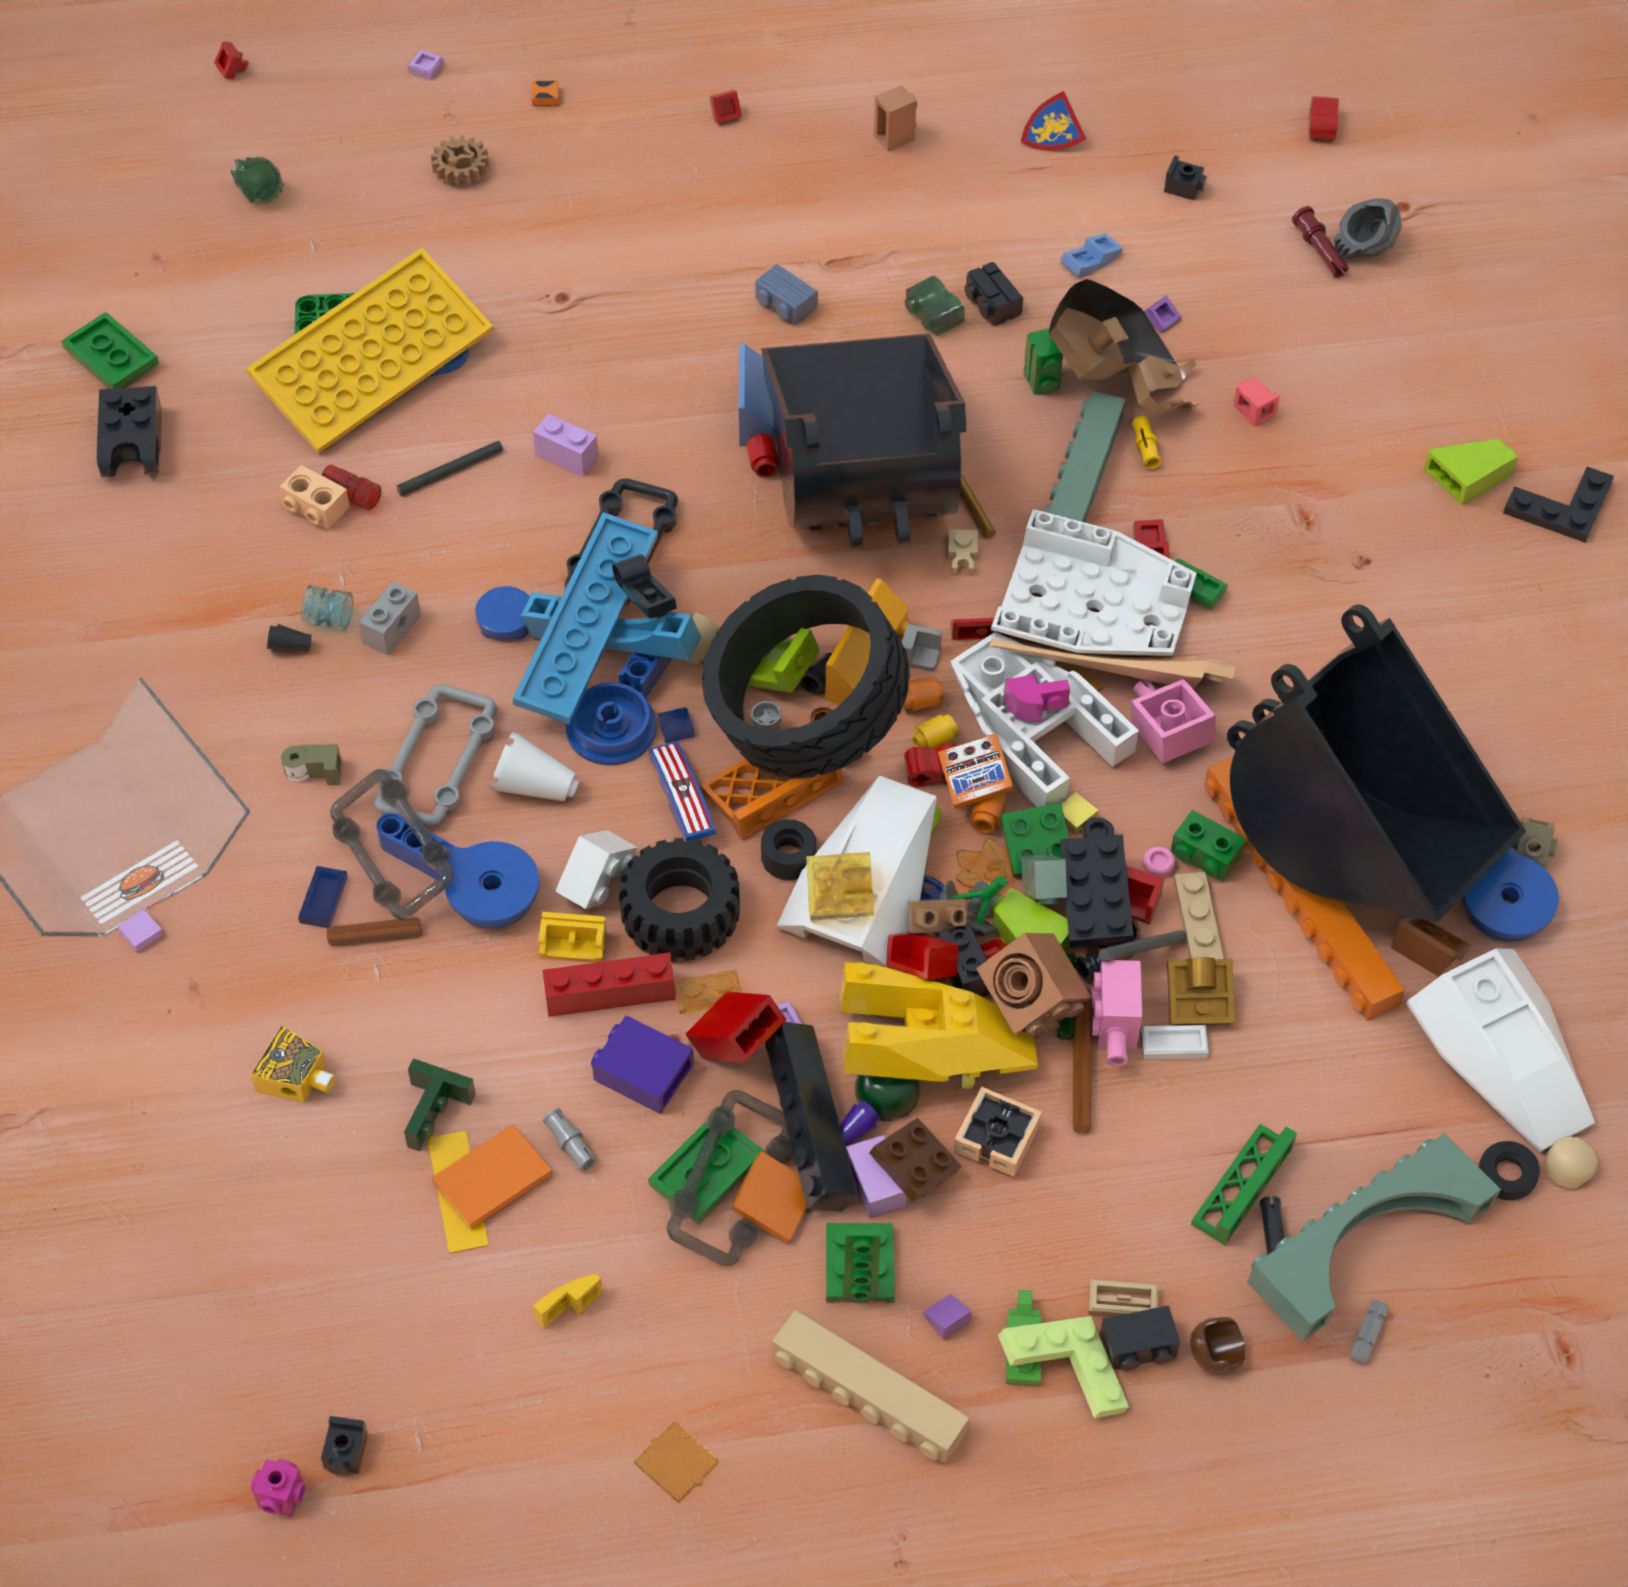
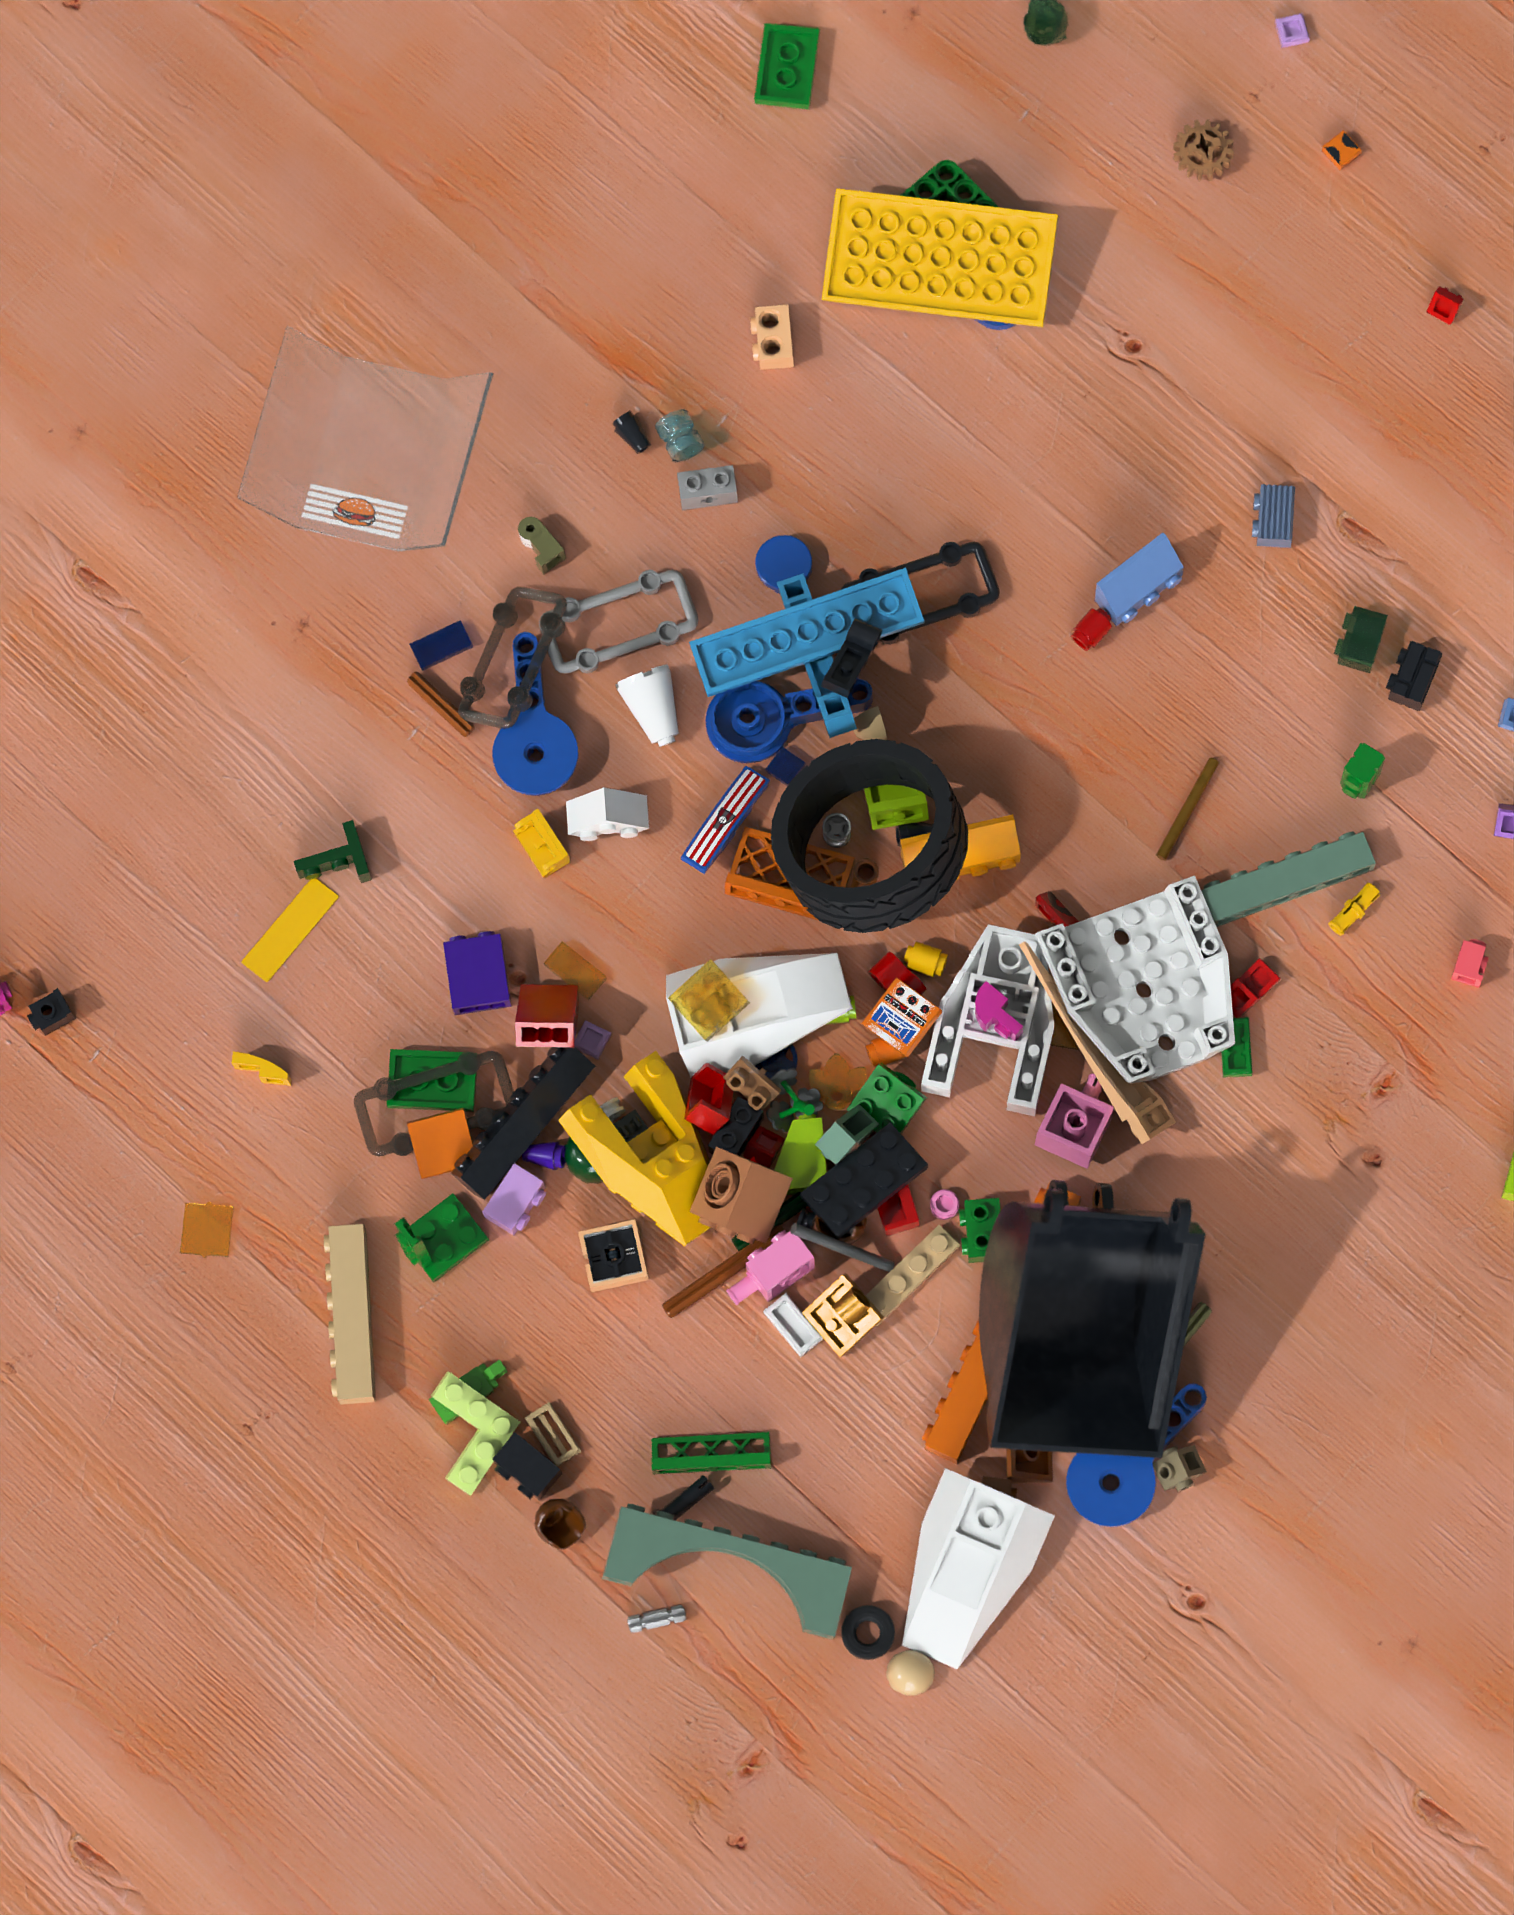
camera: 60 degrees right, 20 degrees up
(128, 429) = (716, 154): black brick -> none
(140, 930) = (315, 548): lavender tile -> none
(291, 1068) = (289, 744): torso -> none
(359, 490) = (805, 349): clear red axle -> none
(449, 468) = (888, 407): pearl dark grey bar -> none
(492, 1176) = (315, 943): orange tile -> none
(565, 444) = (976, 476): lavender piece -> none
(570, 1139) = (382, 972): light grey pin -> none
(609, 984) = (520, 900): red brick -> none
(679, 865) = (618, 857): black tyre -> none
(787, 833) = (732, 916): black tyre -> none
(866, 432) = (1142, 690): black piece -> none
(915, 1159) = (540, 1217): reddish brown plate -> none
(922, 646) = (999, 889): light grey panel -> none
(924, 694) = (955, 922): orange brick -> none
(948, 1316) = (447, 1325): medium lavender slope -> none
(963, 549) = (1128, 846): tan plate -> none
(1078, 812) = (941, 1113): light yellow tile -> none
(1097, 827) = (936, 1142): black tile -> none
(1112, 335) = (1399, 806): medium nougat piece -> none

